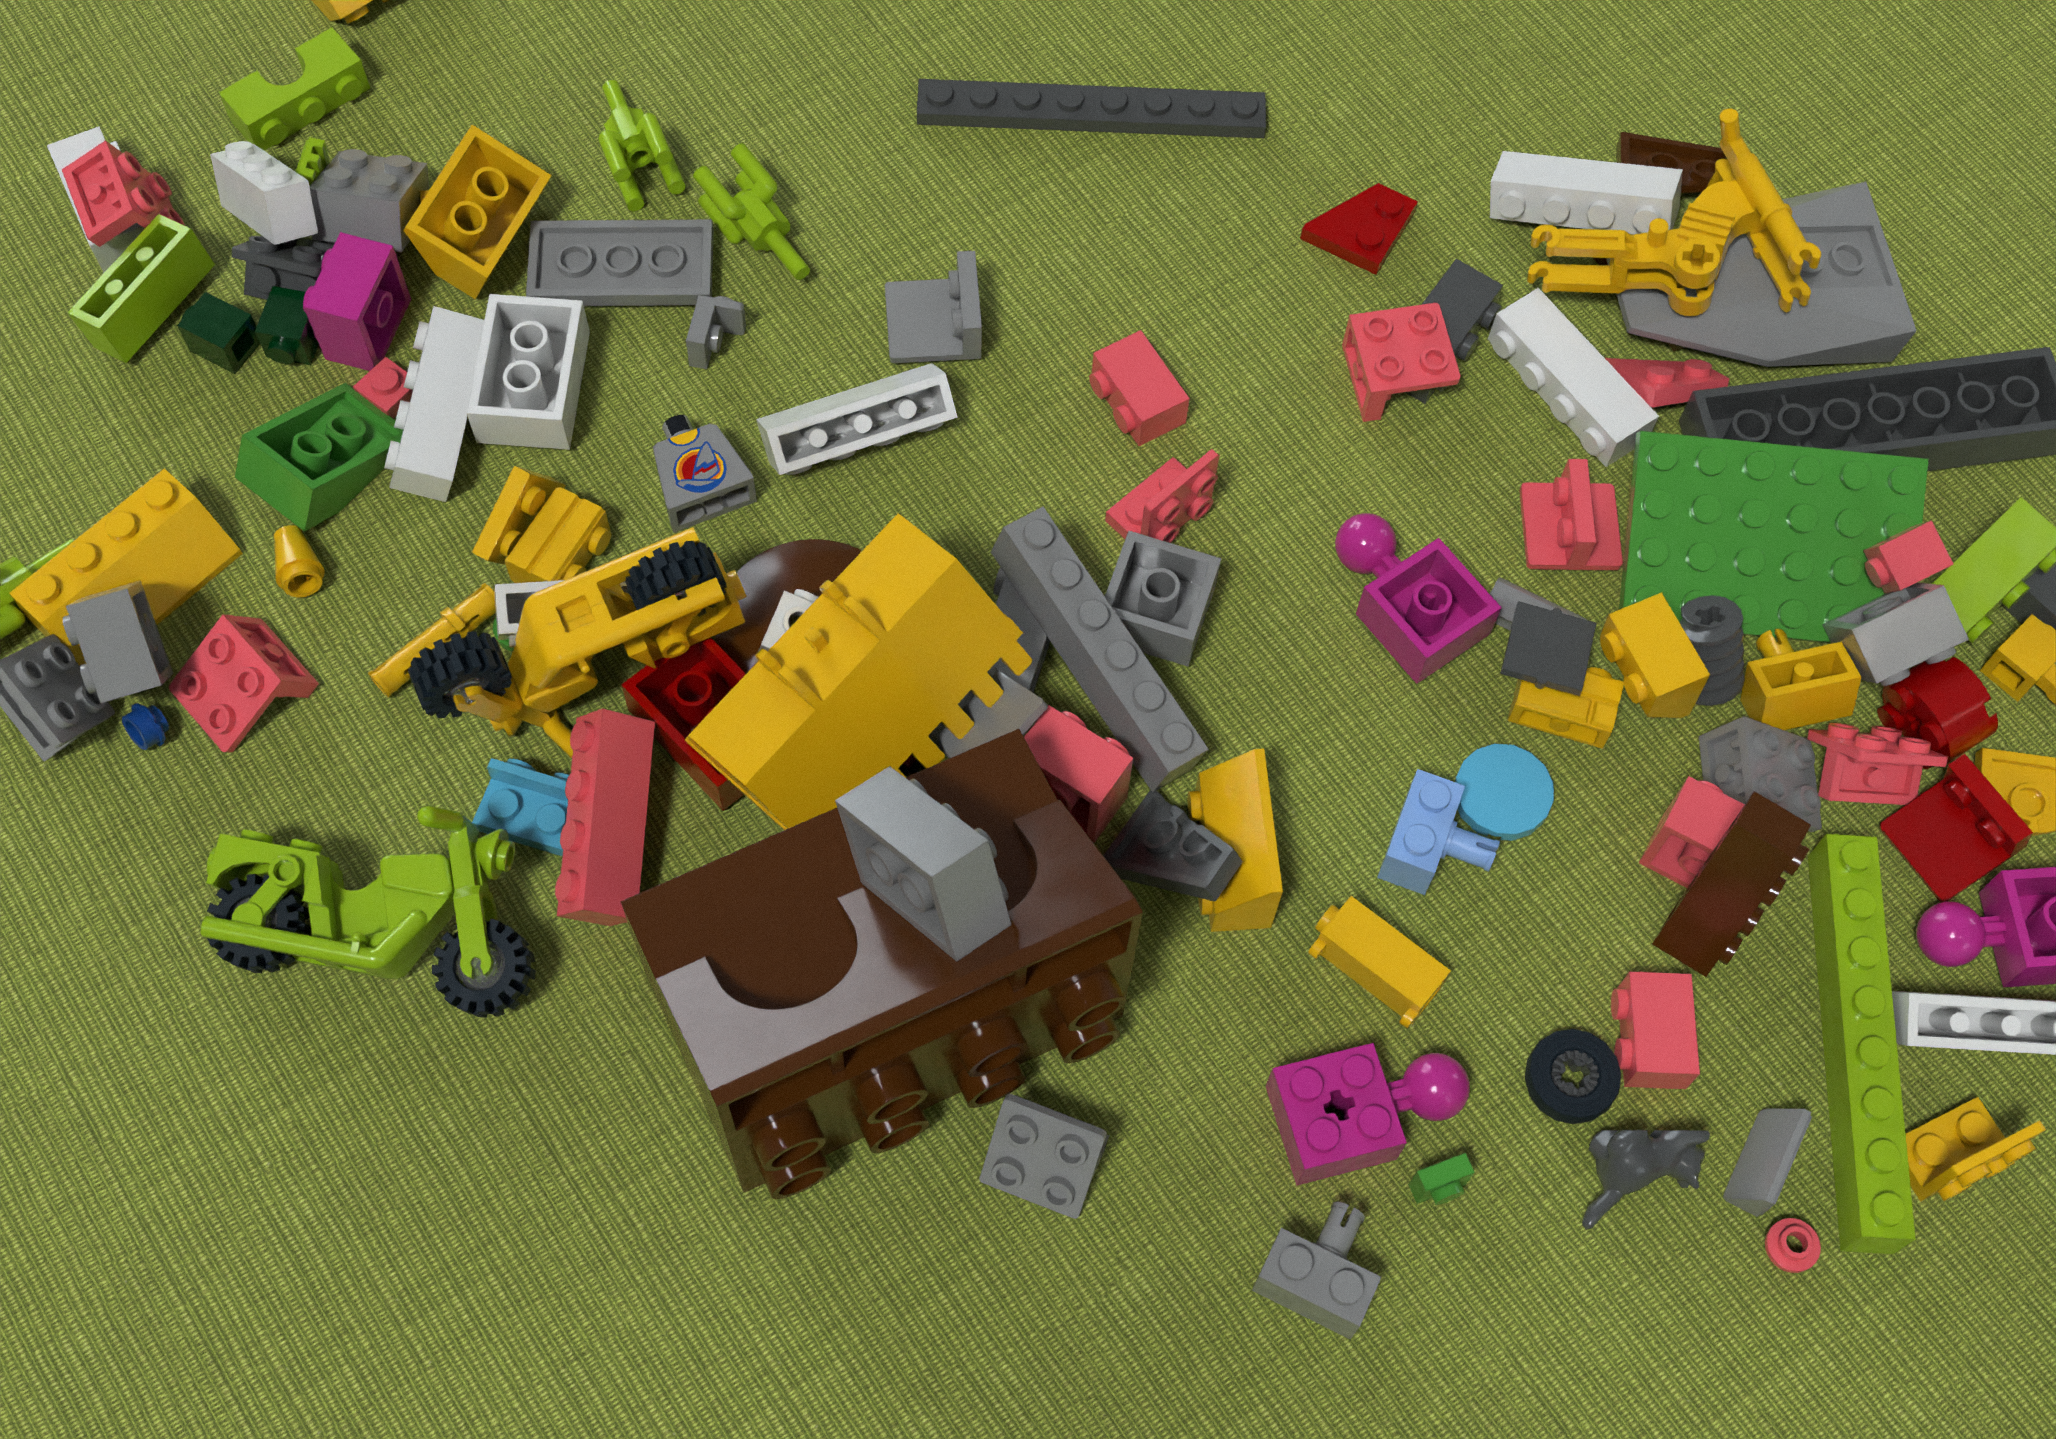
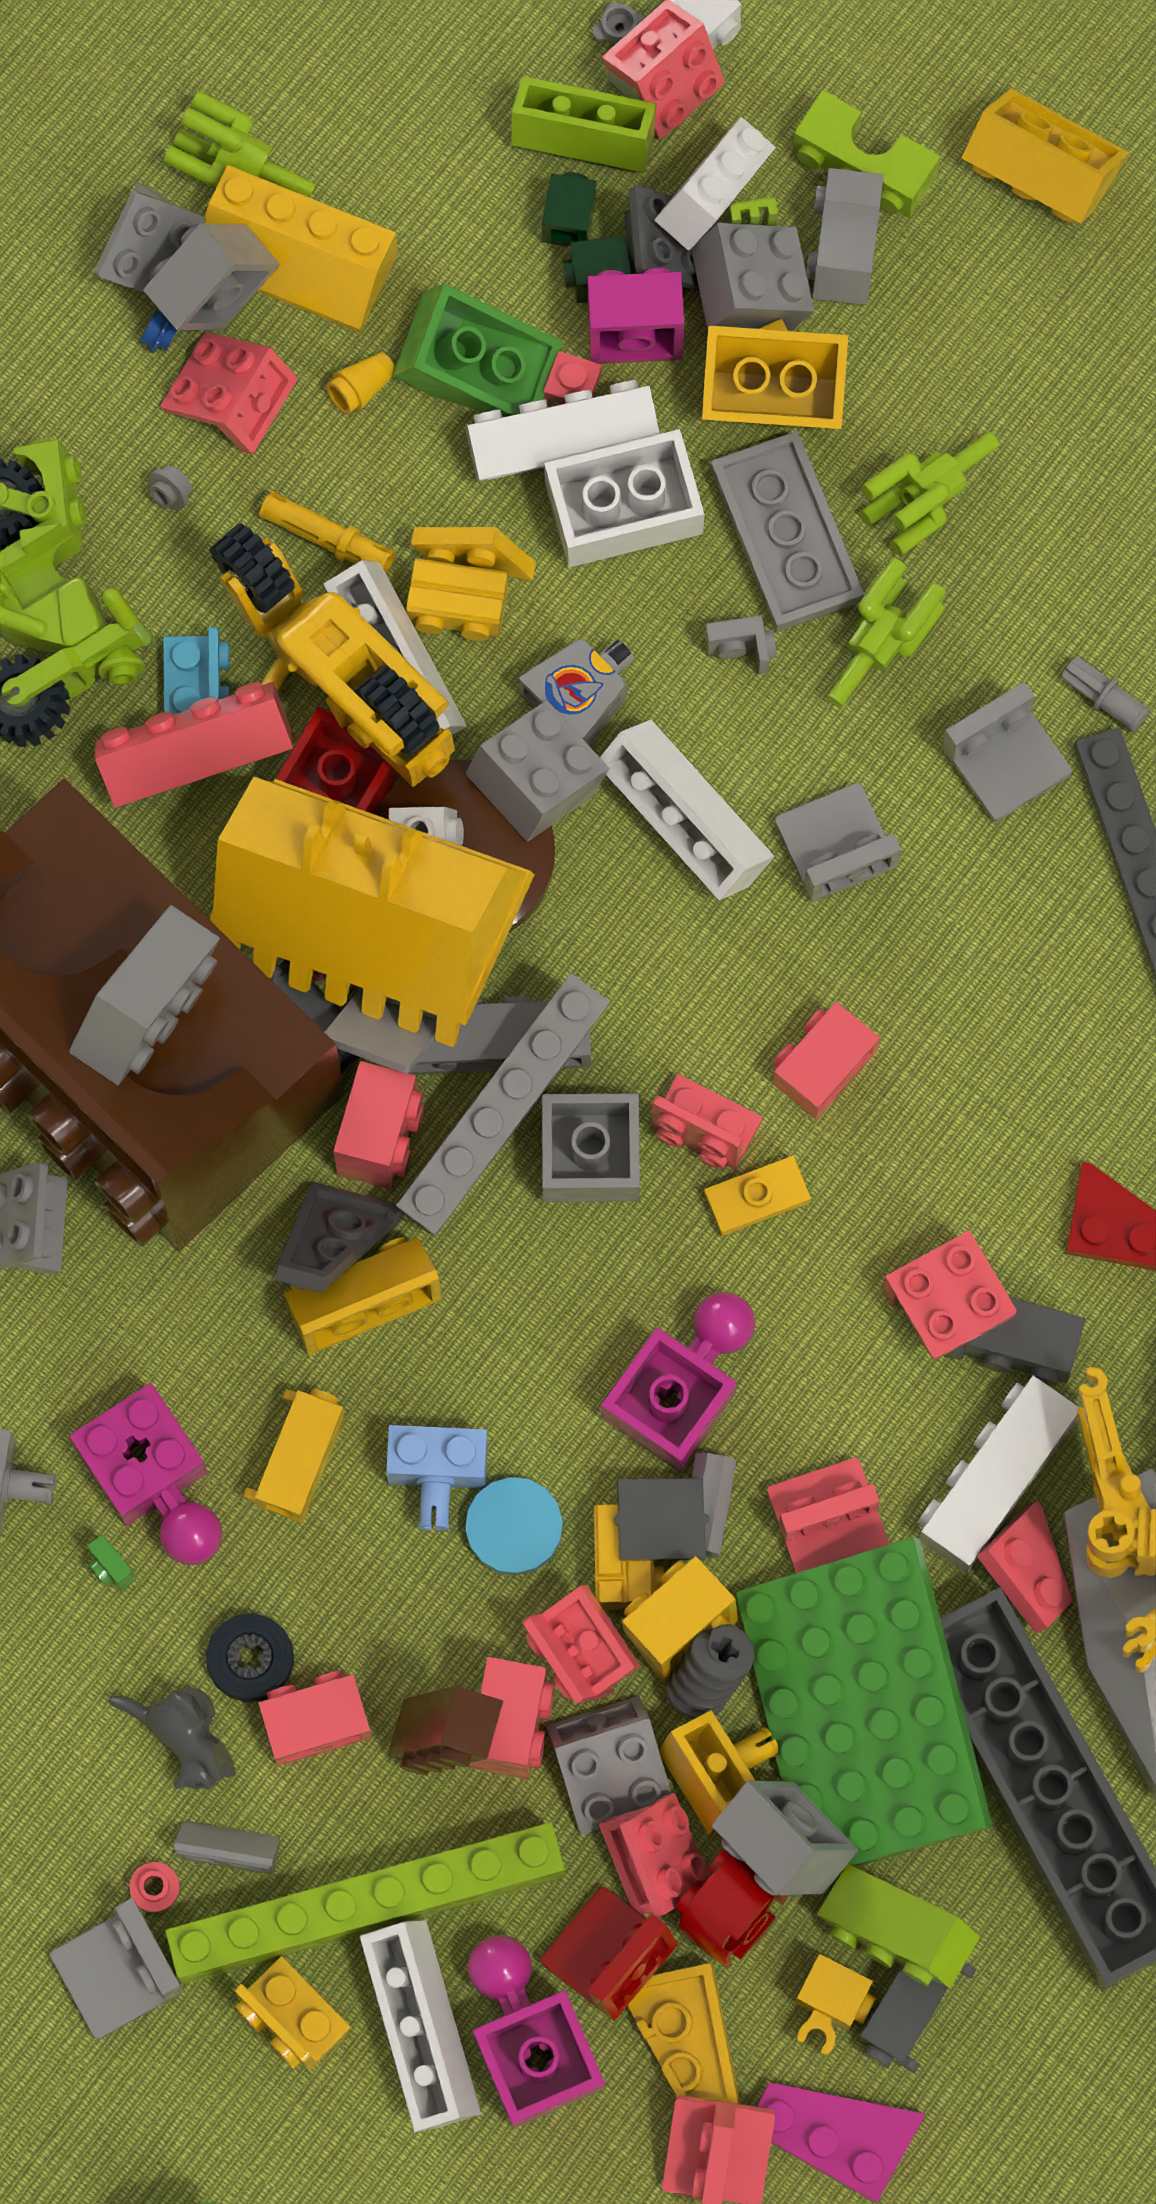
camera: 75 degrees right, 10 degrees up
(59, 240) = (615, 15): none -> light grey plate
(317, 766) = (169, 487): none -> light grey plate
(359, 117) = (847, 236): none -> light grey brick
(768, 524) = (536, 770): none -> light grey brick
(883, 80) = (1105, 693): none -> light grey axle
(907, 166) = (1005, 753): none -> light grey bracket
(1244, 488) = (757, 1195): none -> yellow plate
(1655, 753) = (580, 1646): none -> coral bracket
(1876, 1307) = (116, 1971): none -> light grey bracket
(1906, 558) = (868, 1831): coral brick -> none

